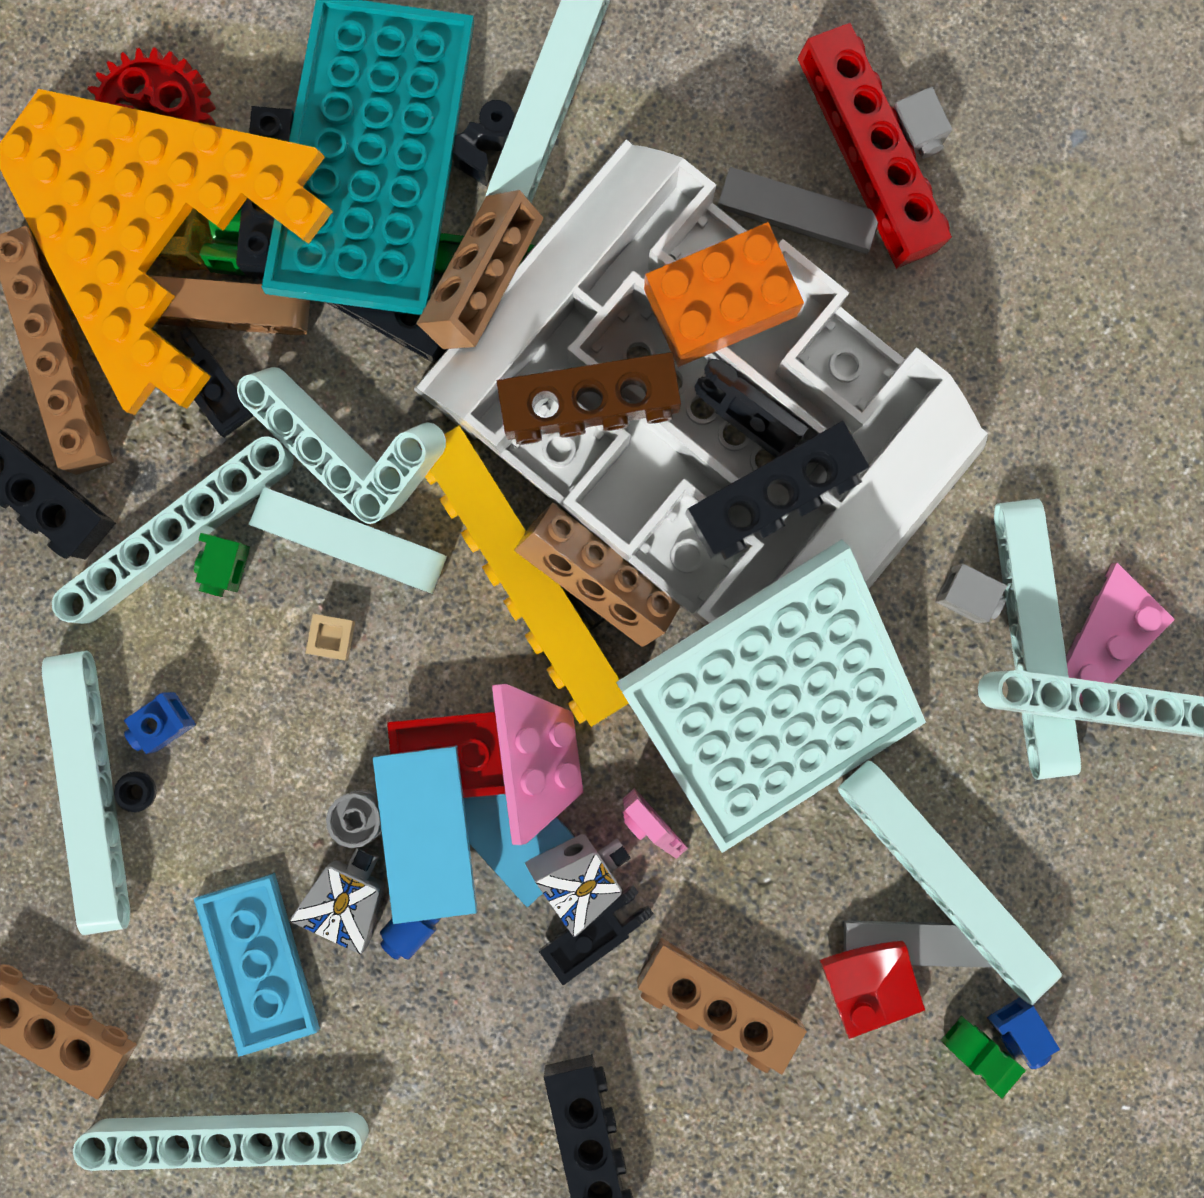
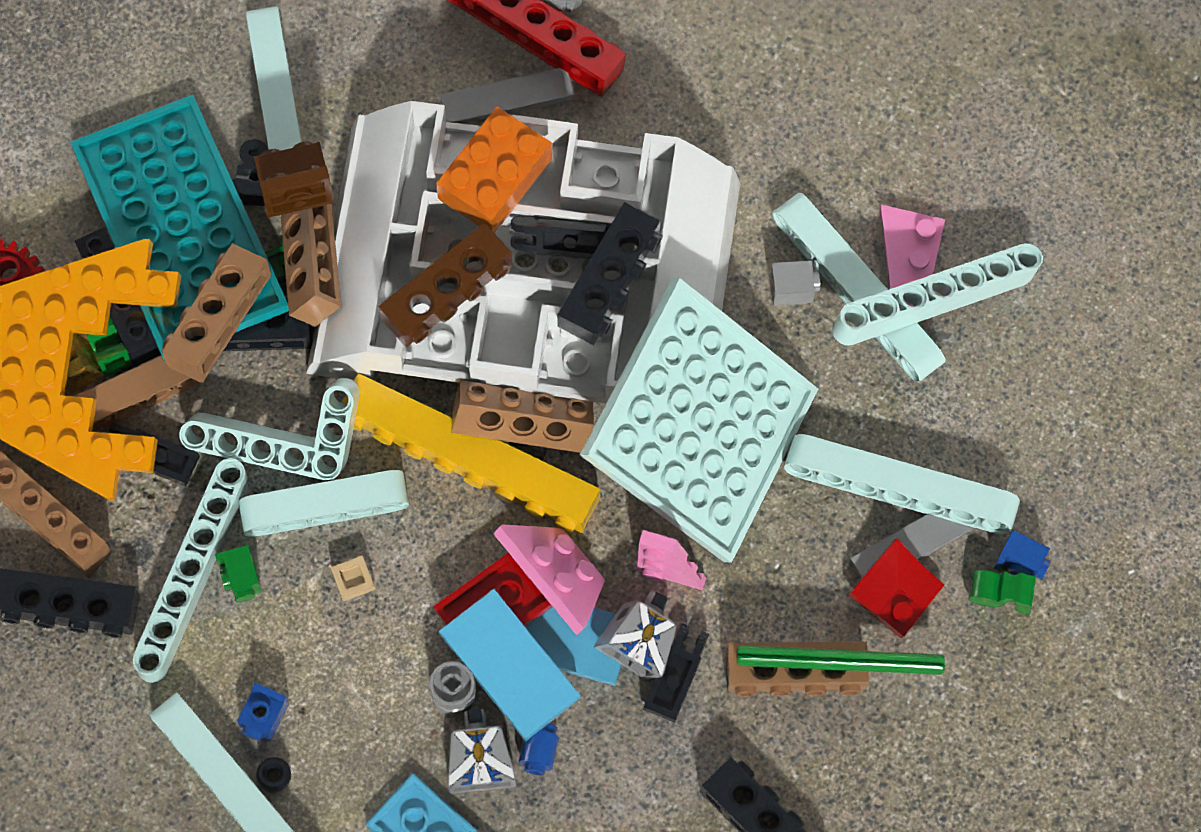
camera: 35 degrees left, 15 degrees down
(330, 295) = (198, 357): none -> medium nougat brick
(505, 171) = (293, 178): none -> reddish brown bracket
(767, 1039) = (840, 660): none -> green axle

